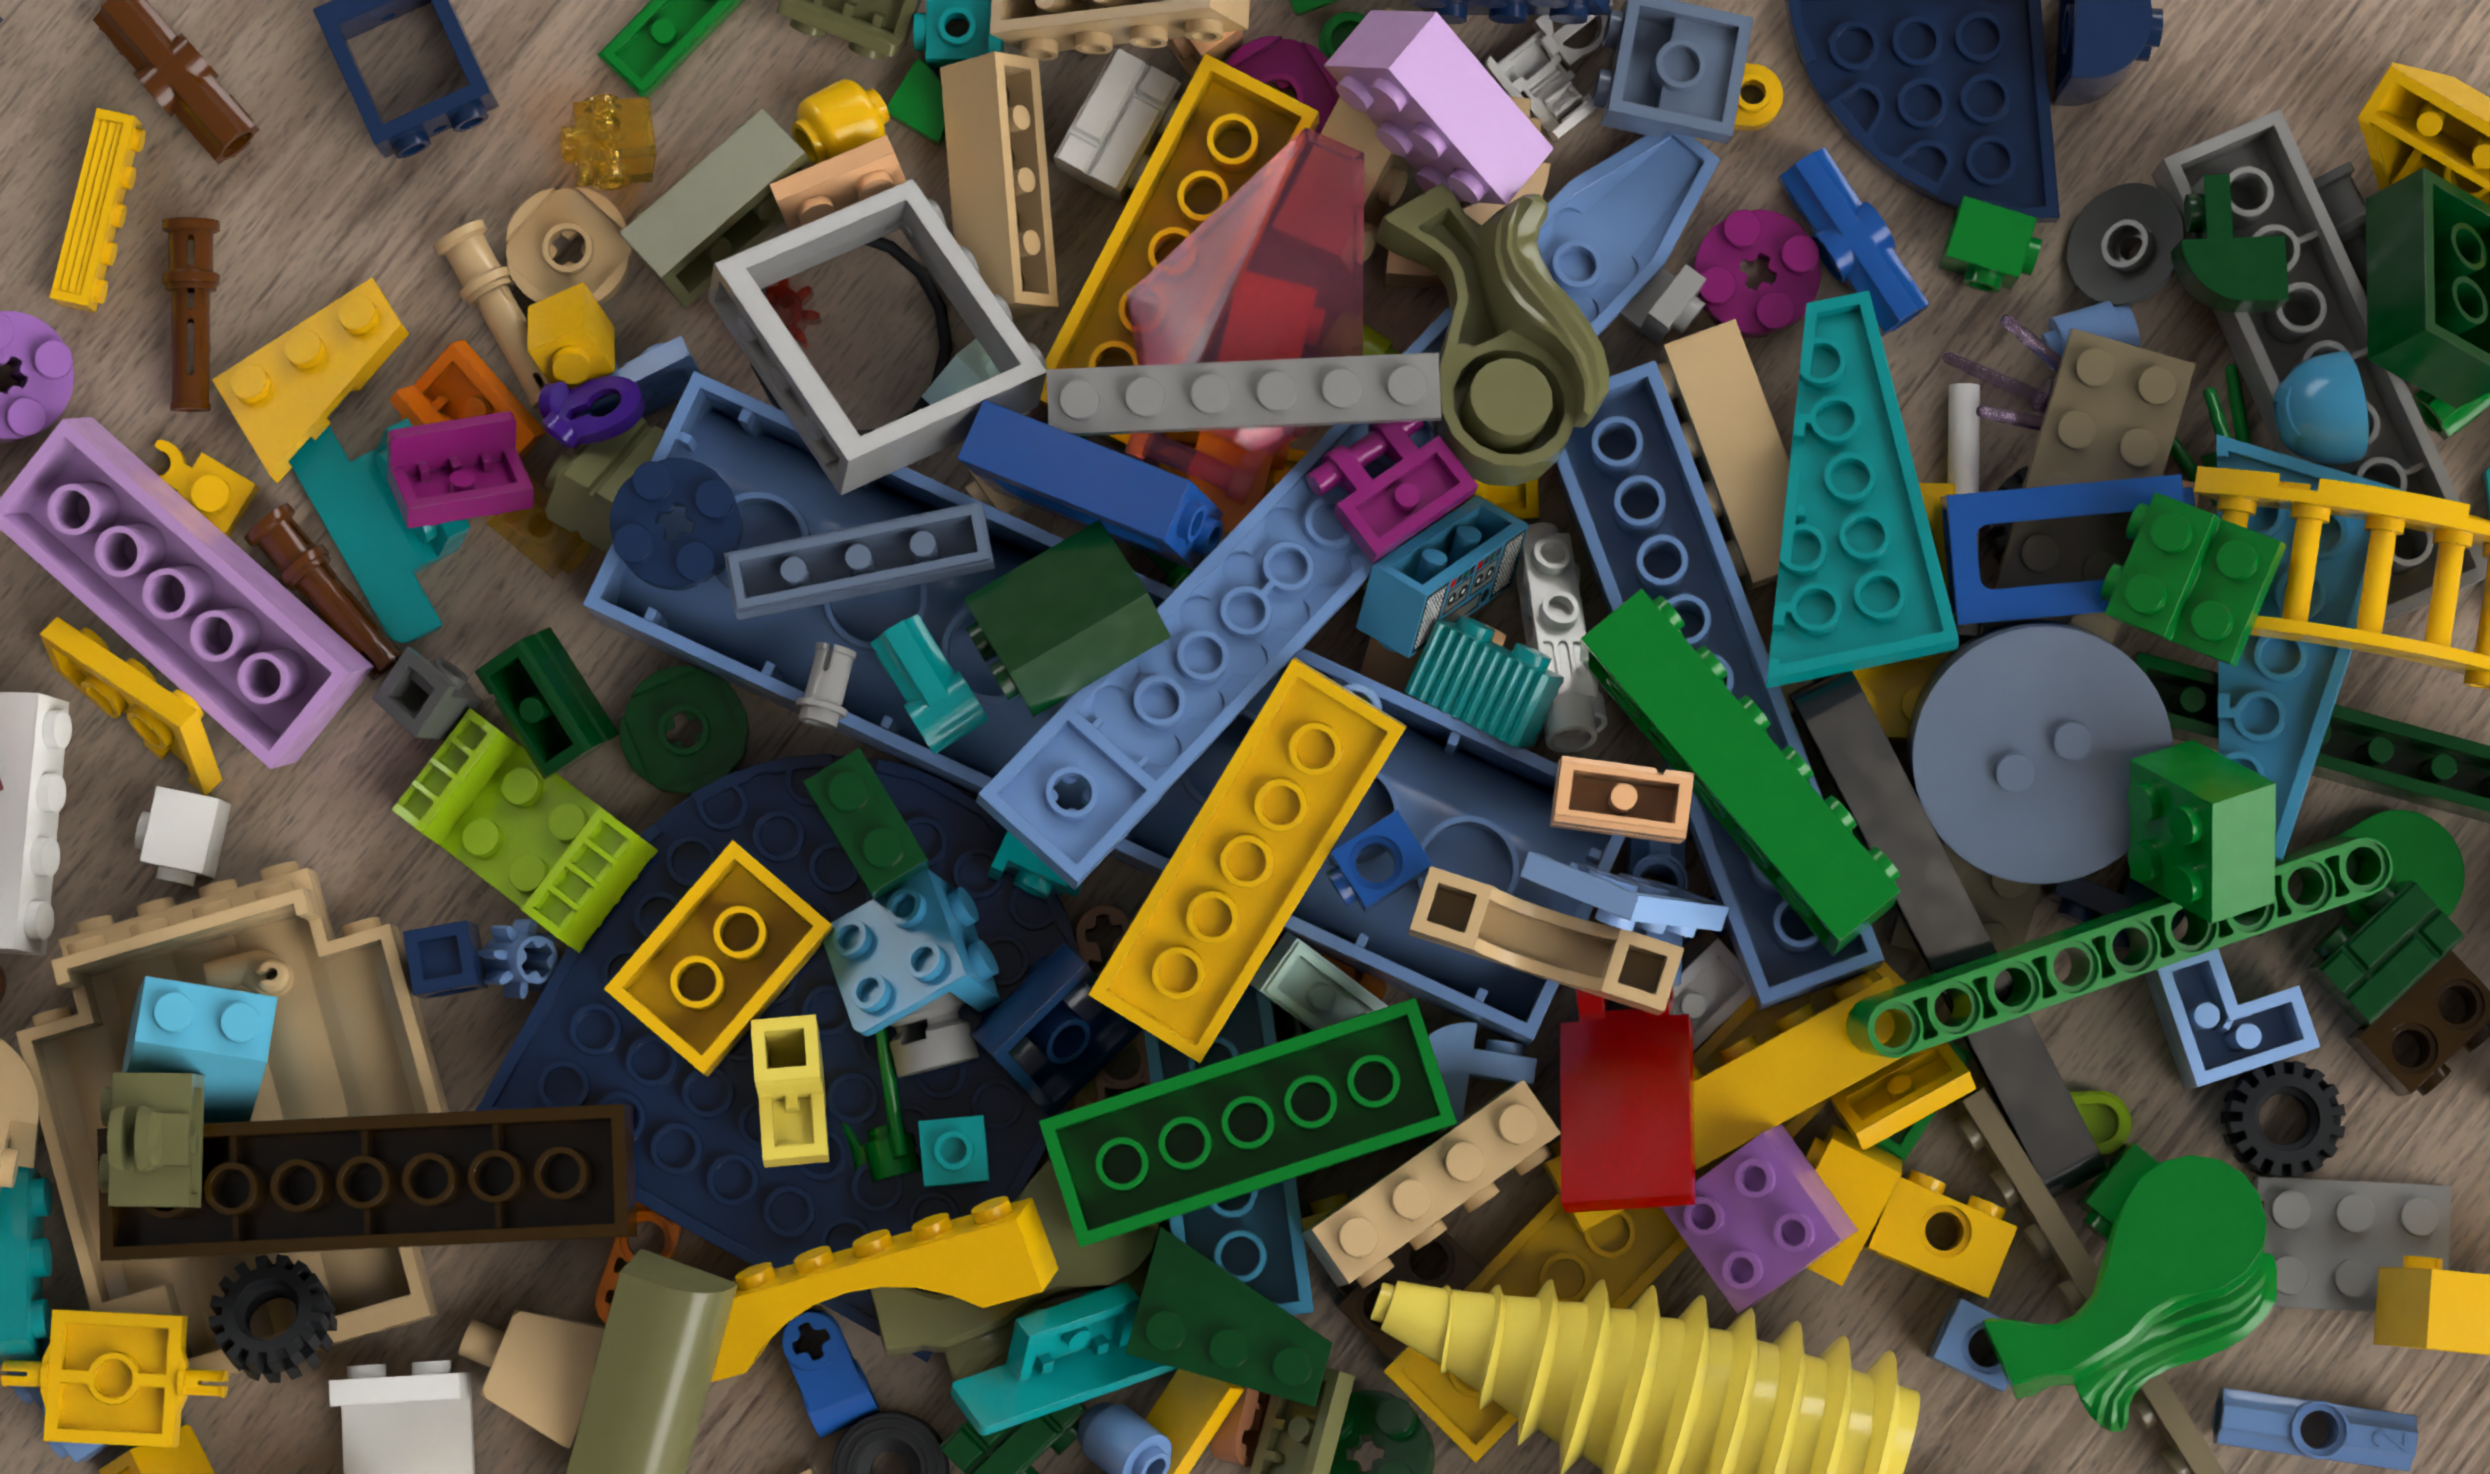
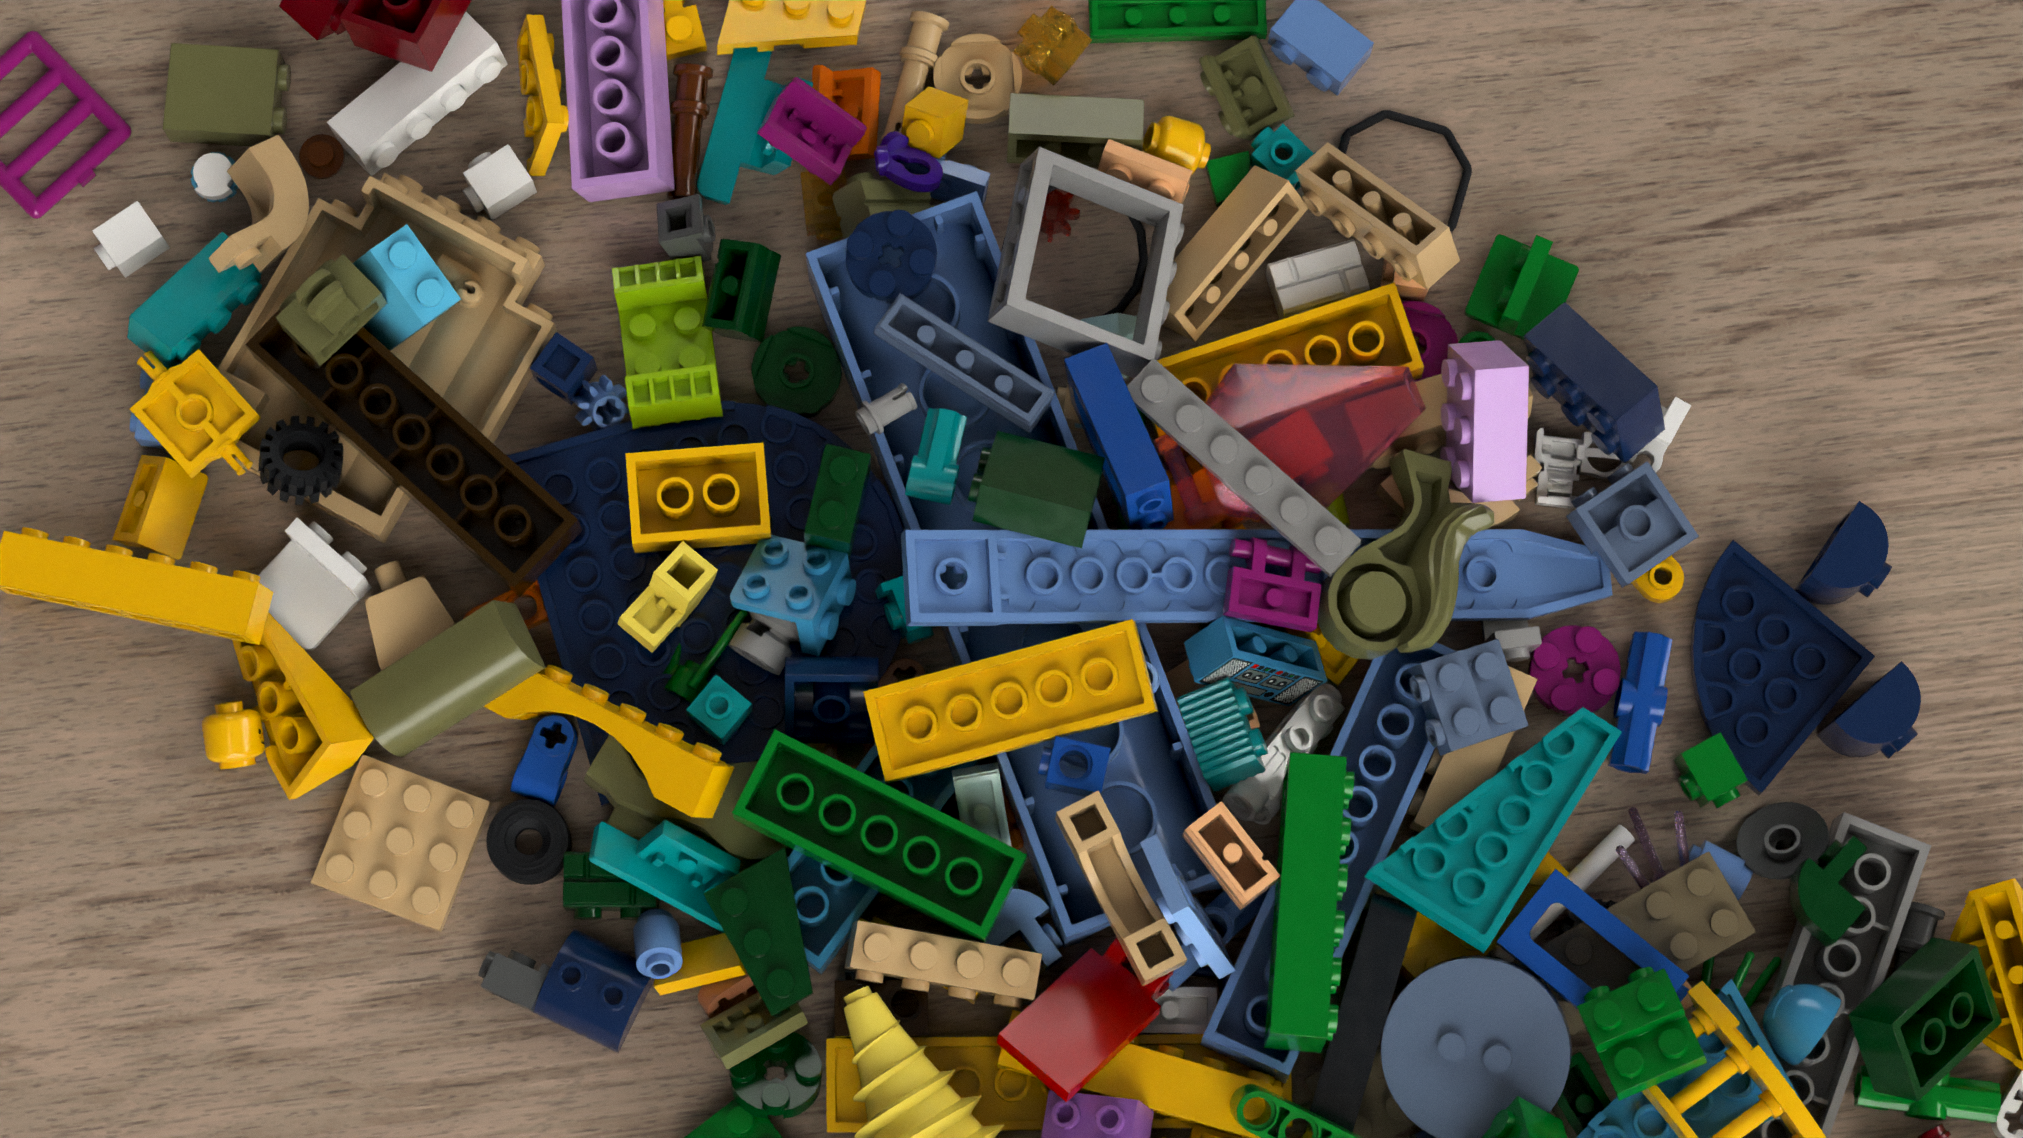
camera: 40 degrees right, 5 degrees down
(1688, 406) = (1467, 697): none -> sand blue plate

